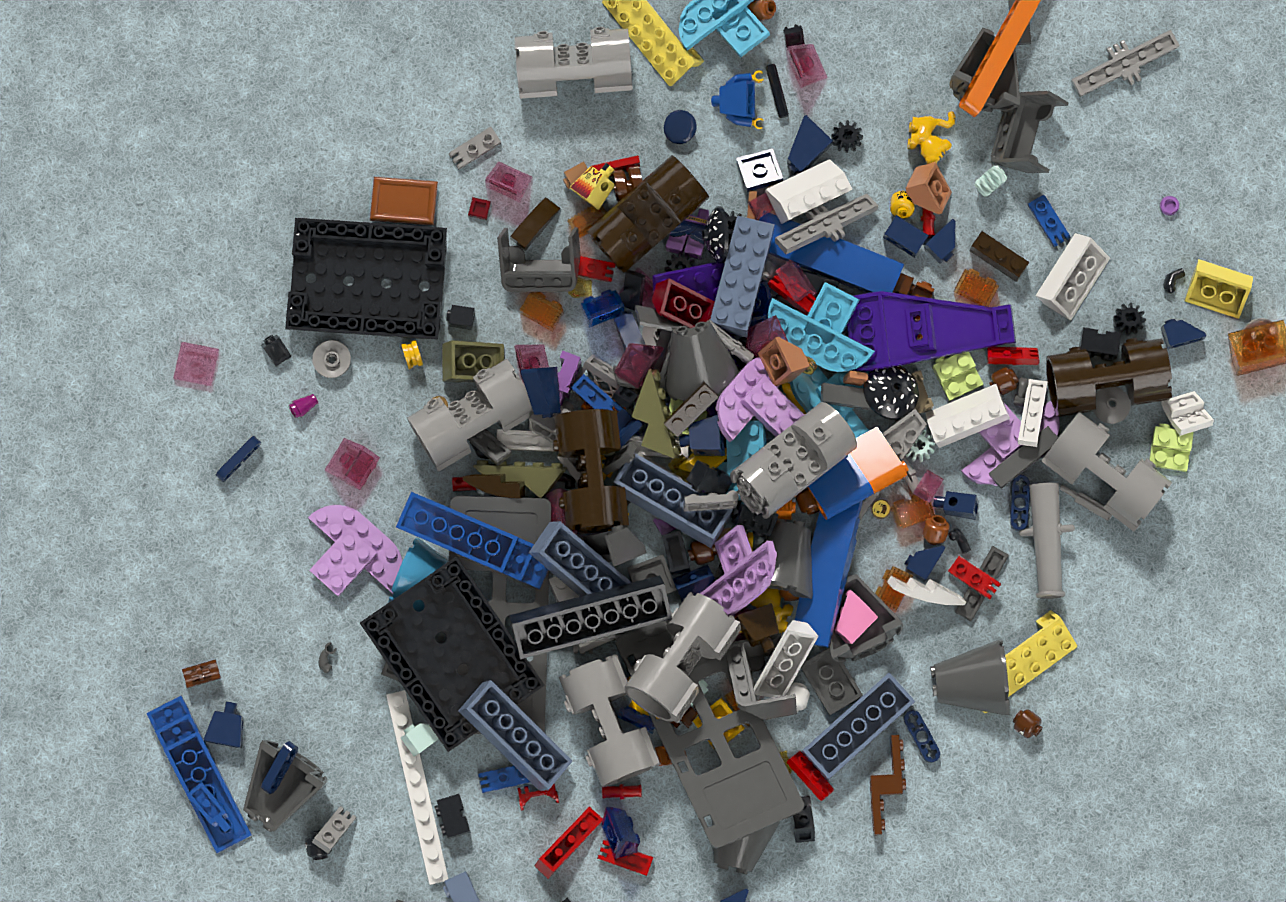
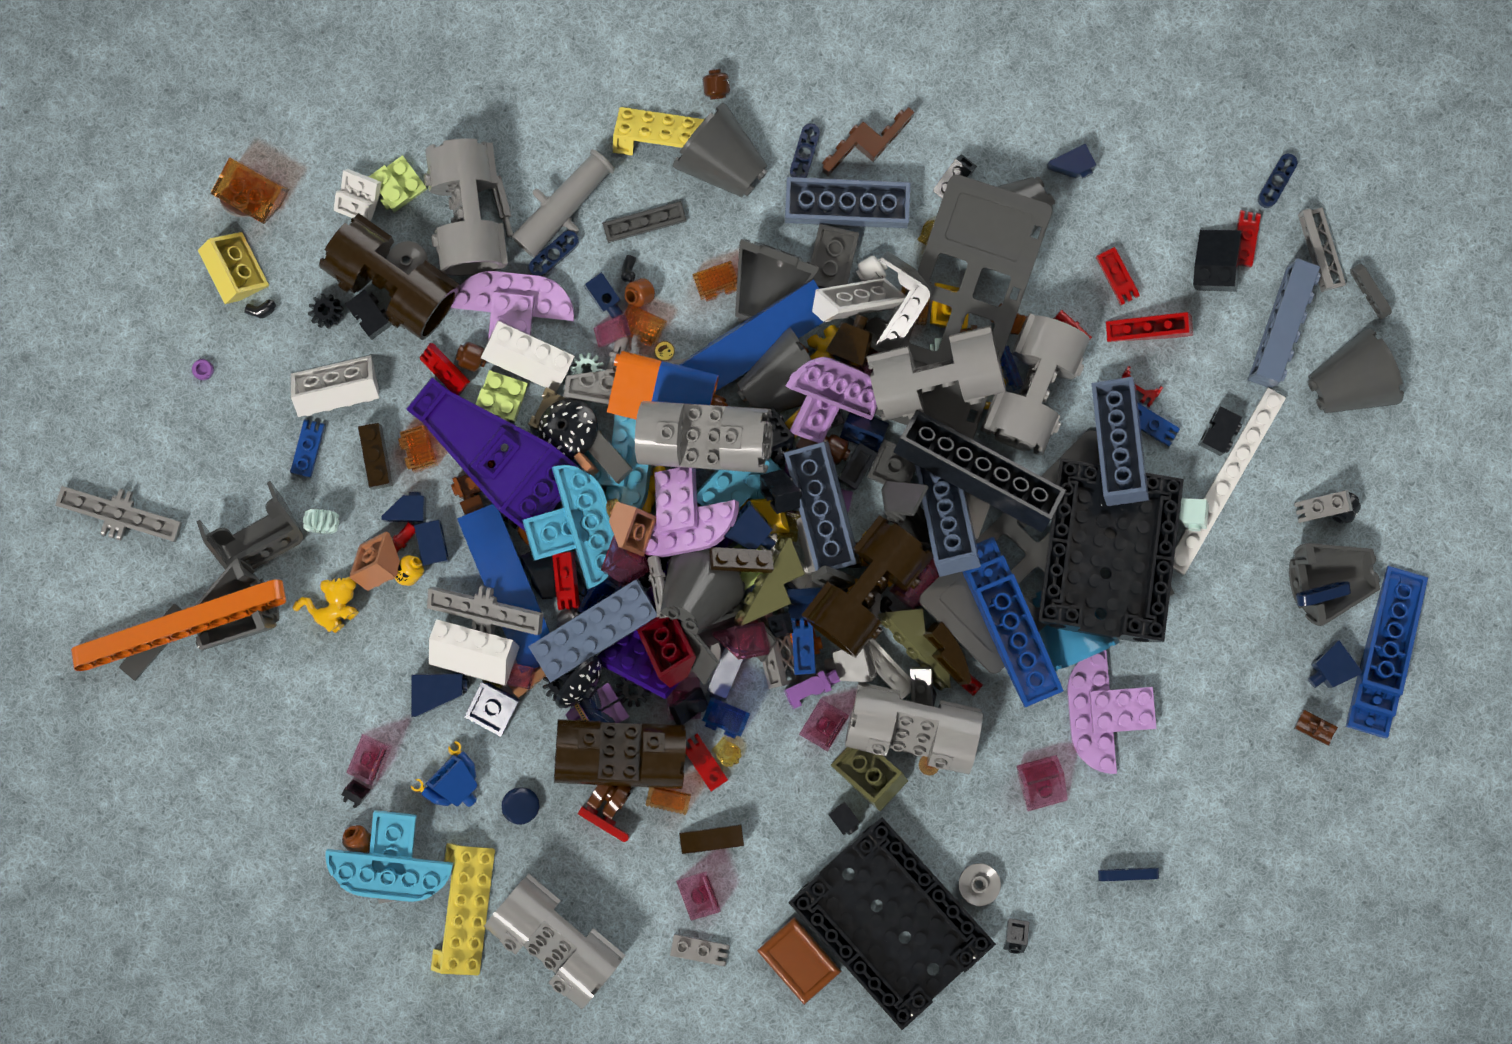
camera: 140 degrees left, 5 degrees up
(196, 364) = (1090, 986): clear pink tile -> none
(209, 806) = (1405, 615): blue hinge -> none
(303, 405) = (1037, 868): magenta cone -> none
(323, 659) = (1208, 648): dark grey arm -> none
(412, 354) = (912, 825): yellow wheel -> none
(479, 208) = (743, 895): dark red tile -> none
(538, 275) = (750, 793): dark grey windscreen -> none
(542, 310) = (775, 762): clear orange brick -> none
(542, 390) = (841, 690): dark blue slope -> none
(573, 174) = (641, 844): medium nougat brick -> none
(594, 185) = (638, 820): light yellow torso -> none
(620, 832) = (1106, 294): clear blue slope -> none
(711, 501) = (796, 472): light grey plate -> none
(777, 91) = (413, 761): black axle -> none
(795, 280) = (555, 586): clear pink panel -> none
(810, 775) = (919, 203): red hinge -> none
(854, 140) = (398, 676): black gear -> none
(854, 618) = (770, 284): bright pink slope -> none
(923, 562) = (672, 278): dark blue slope -> none
(931, 592) = (693, 248): white slope -> none
(973, 577) = (646, 230): red hinge -> none
(1019, 398) = (472, 331): dark grey arm -> none
(1023, 458) = (516, 280): dark grey tile -> none
(1032, 413) = (475, 308): white plate -> none
(1180, 333) = (299, 262): dark blue slope -> none

